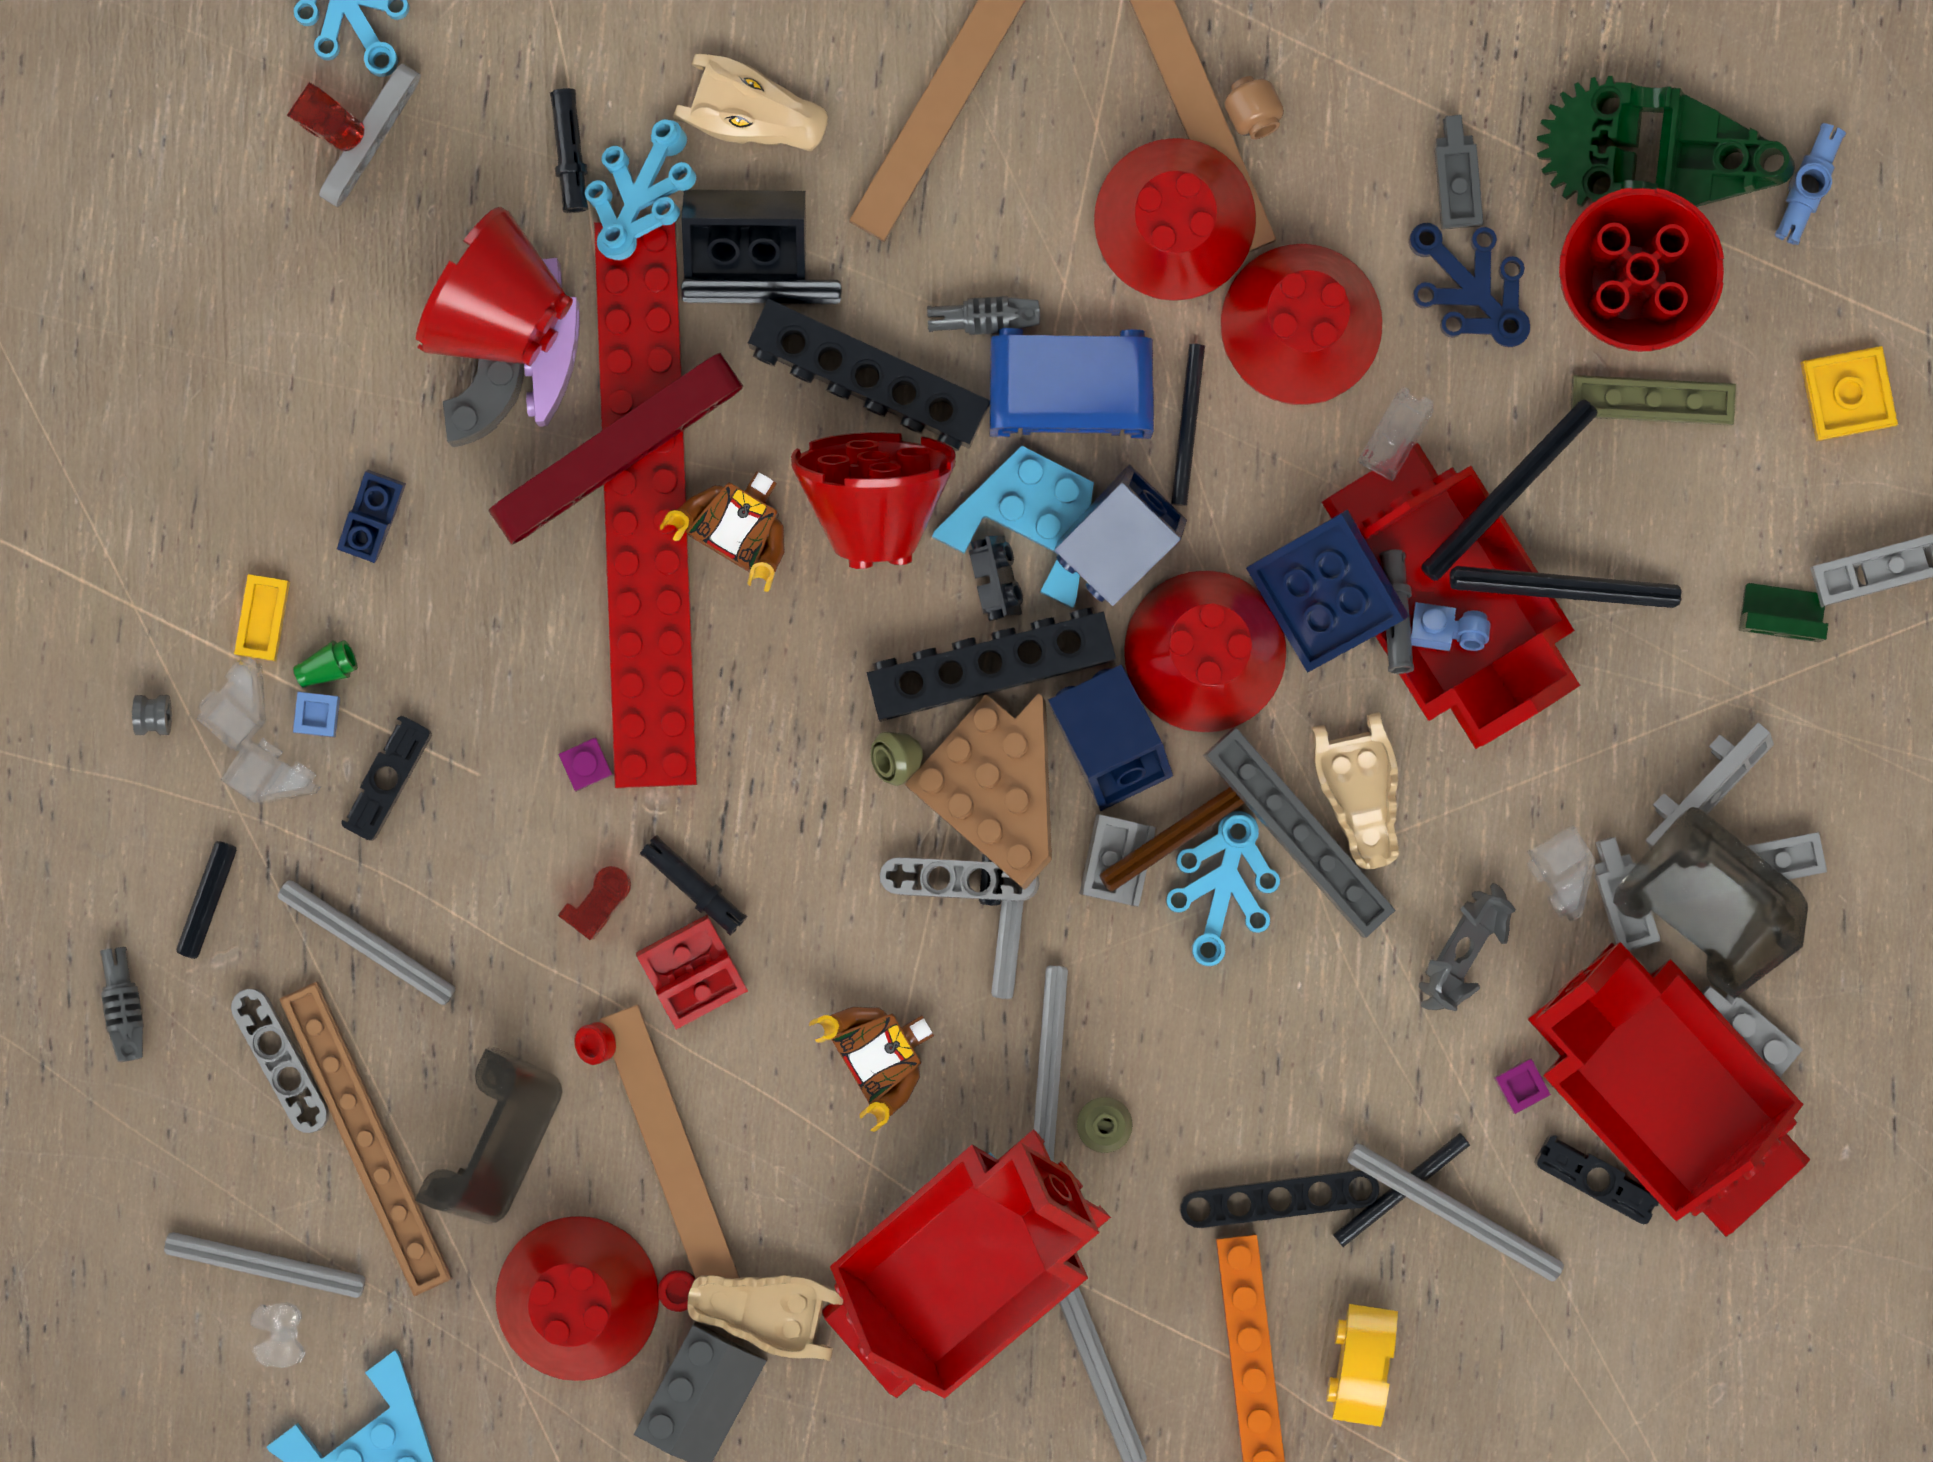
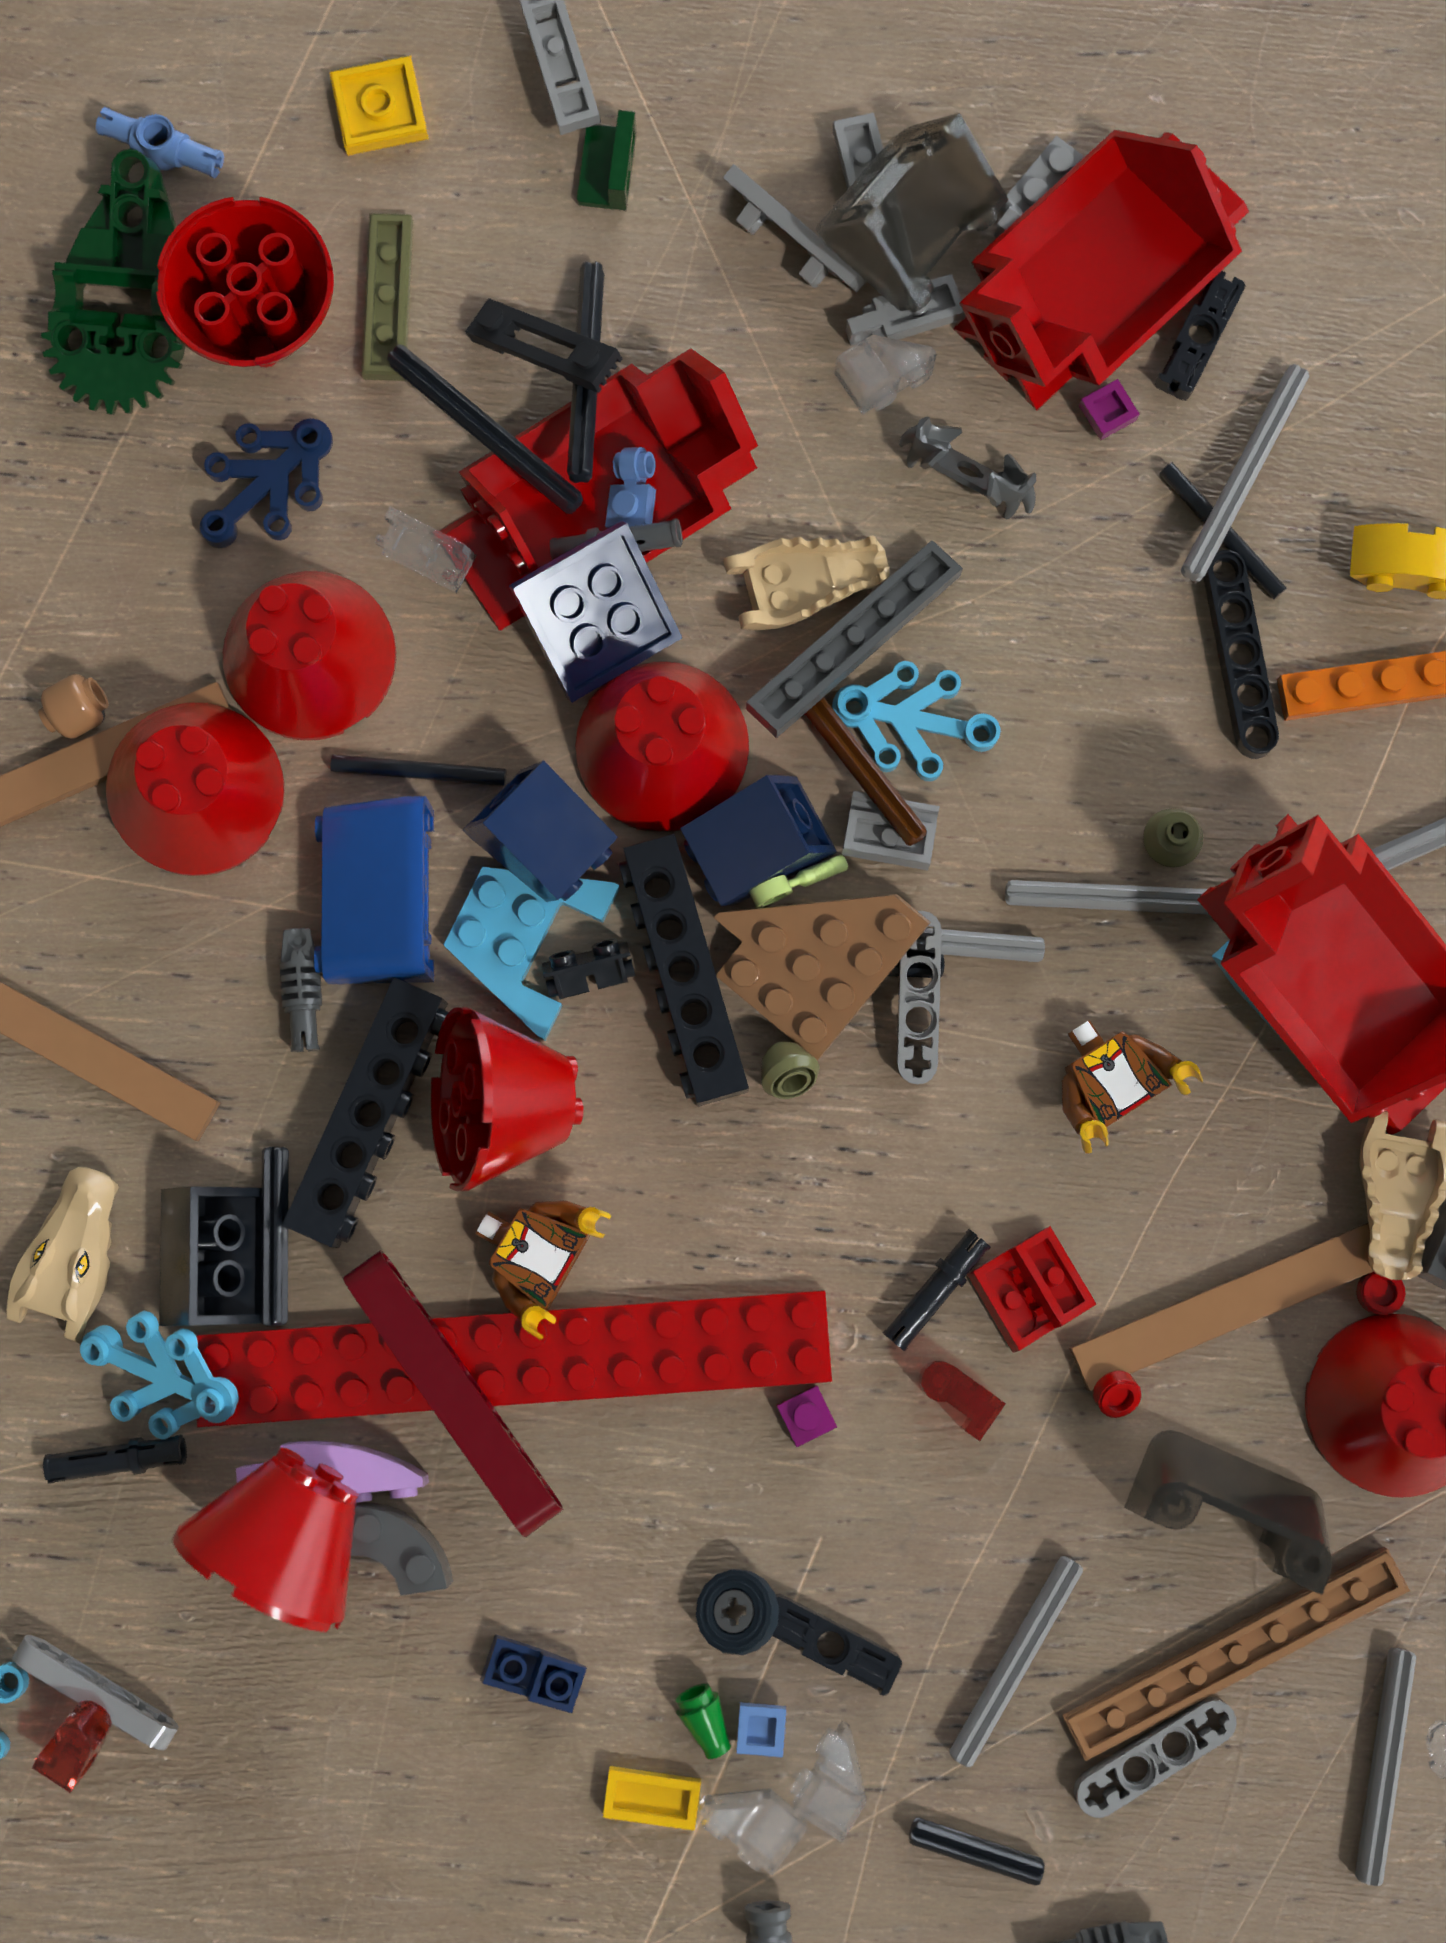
camera: 90 degrees left, 5 degrees down
(402, 708) = (754, 1628): none -> black bush
(1074, 779) = (780, 887): none -> yellowish green piece
(1458, 177) = (150, 495): dark grey hinge -> none
(1566, 588) = (585, 366): none -> black container

